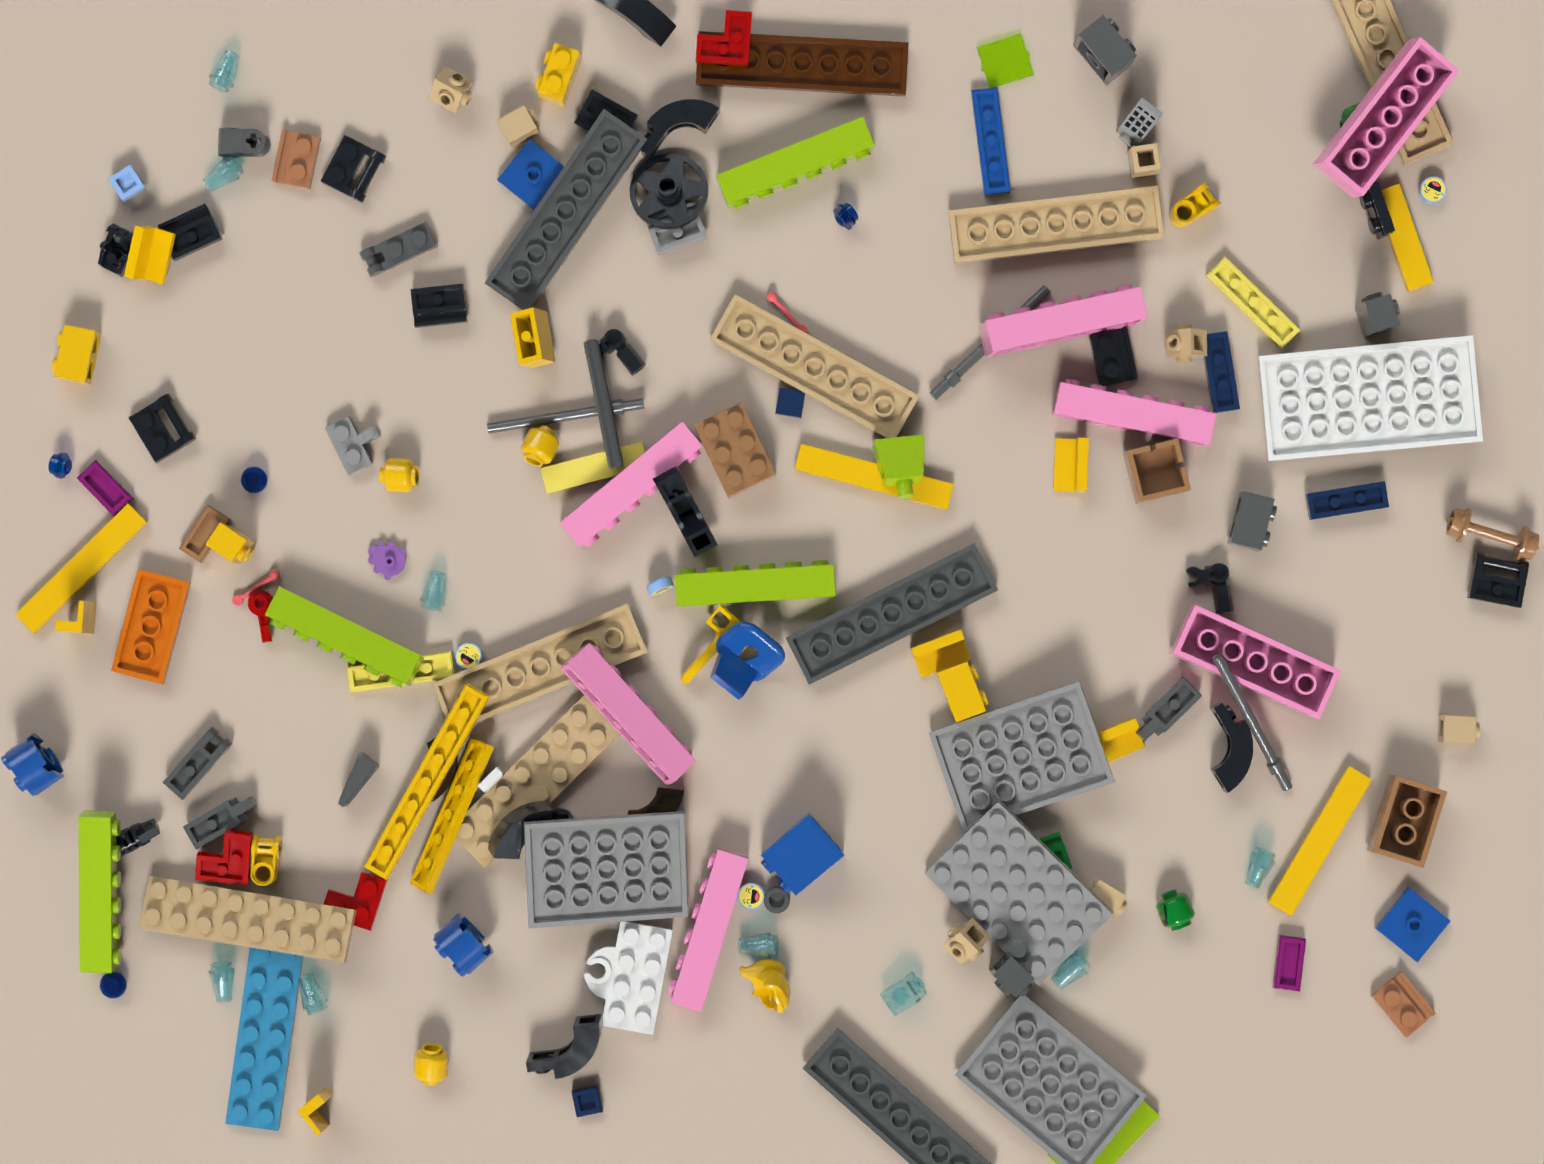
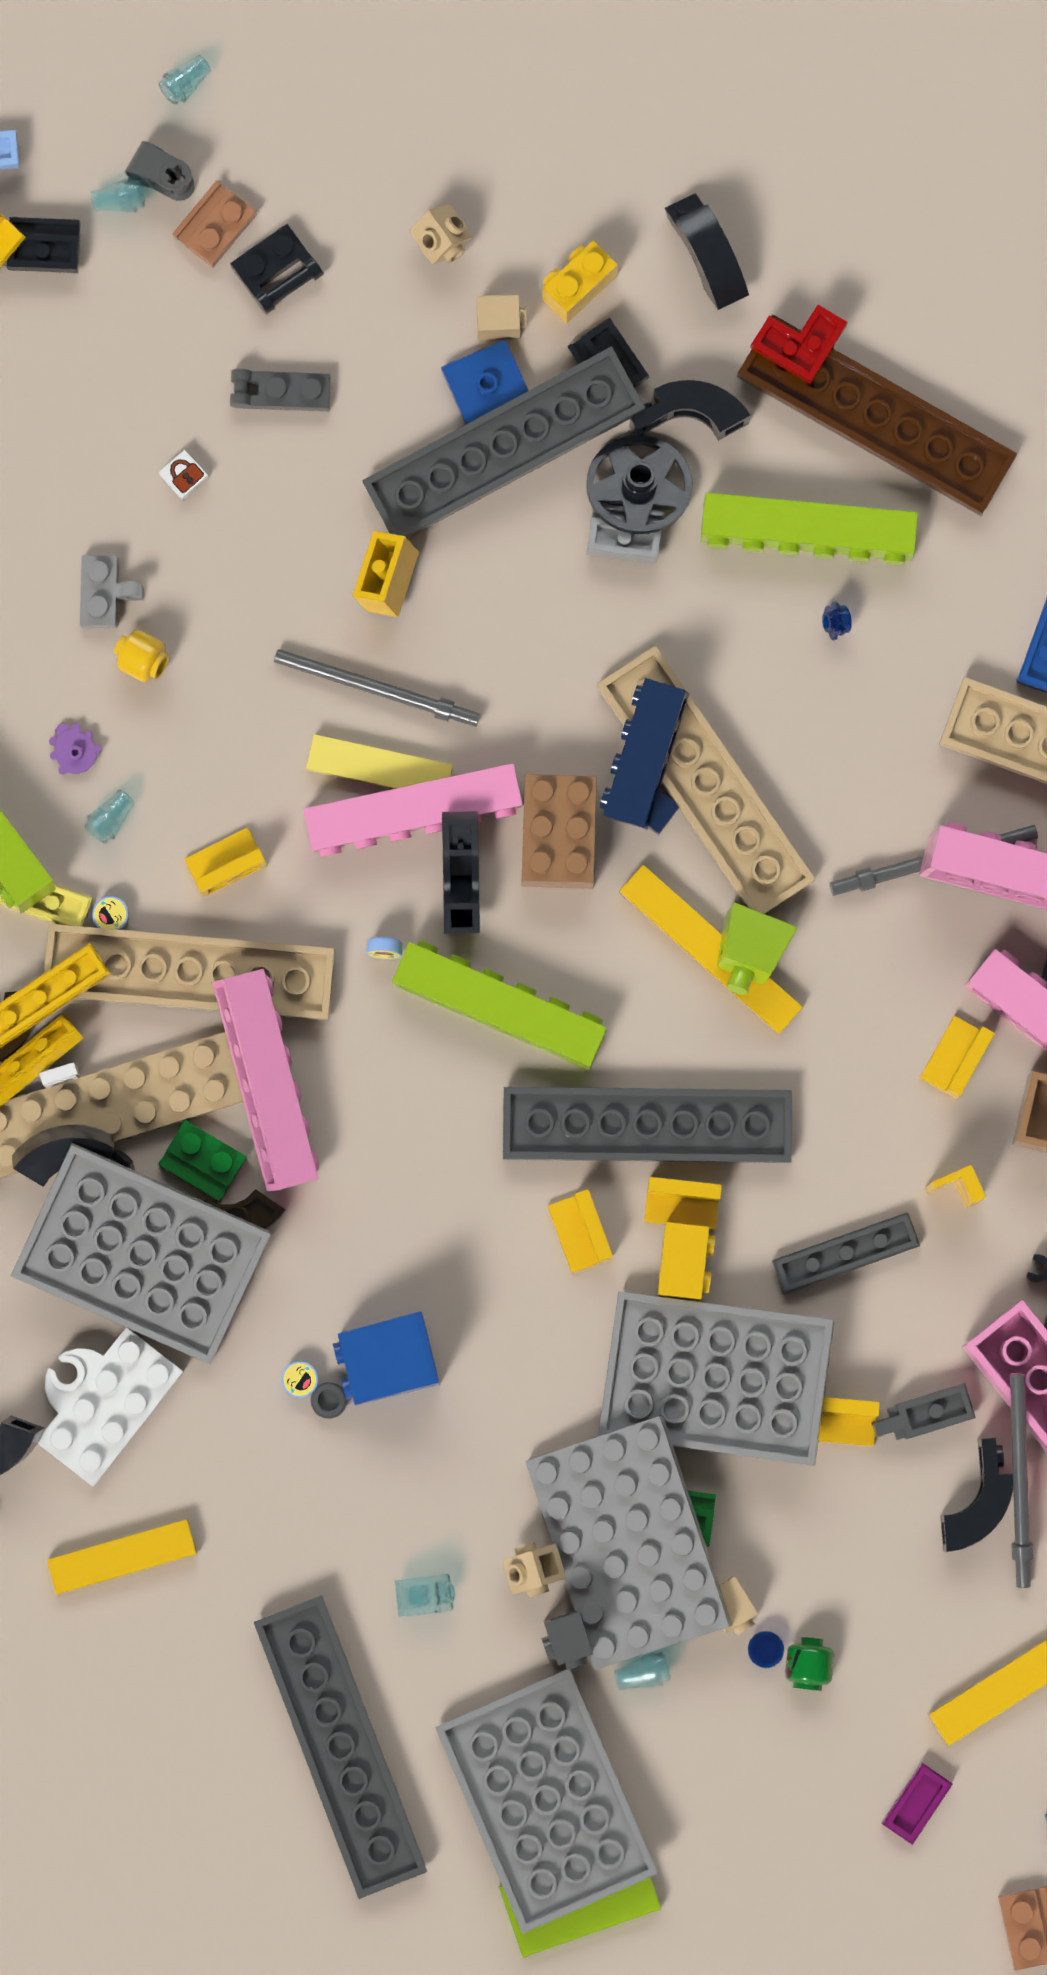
camera: 20 degrees right, 5 degrees down
(363, 339) = (183, 475): none -> tile
(439, 305) = (293, 480): black plate -> none
(526, 582) = (225, 862): none -> yellow panel
(539, 446) = (327, 707): yellow head -> none
(603, 403) = (429, 695): dark grey axle -> none
(613, 786) = (202, 1160): none -> green plate
(626, 354) = (481, 628): black bar -> none
(695, 1069) = (121, 1557): none -> yellow tile
(709, 929) = (227, 1394): bright pink brick -> none
(711, 650) = (427, 1049): yellow piece -> none
(738, 674) = (422, 1100): blue piece -> none
(759, 945) = (280, 1445): clear light blue cone -> none
(765, 370) = (645, 753): none -> dark blue brick
(769, 983) = (267, 1496): yellow hair -> none
(772, 297) = (698, 673): coral hinge -> none
(883, 706) = (580, 1231): none -> yellow panel
(1063, 630) = (846, 1253): none -> dark grey tile
(1119, 546) = (966, 1184): none -> yellow panel
(1142, 914) = (765, 1649): none -> clear blue plate
(1259, 866) = (940, 1664): clear light blue cone -> none

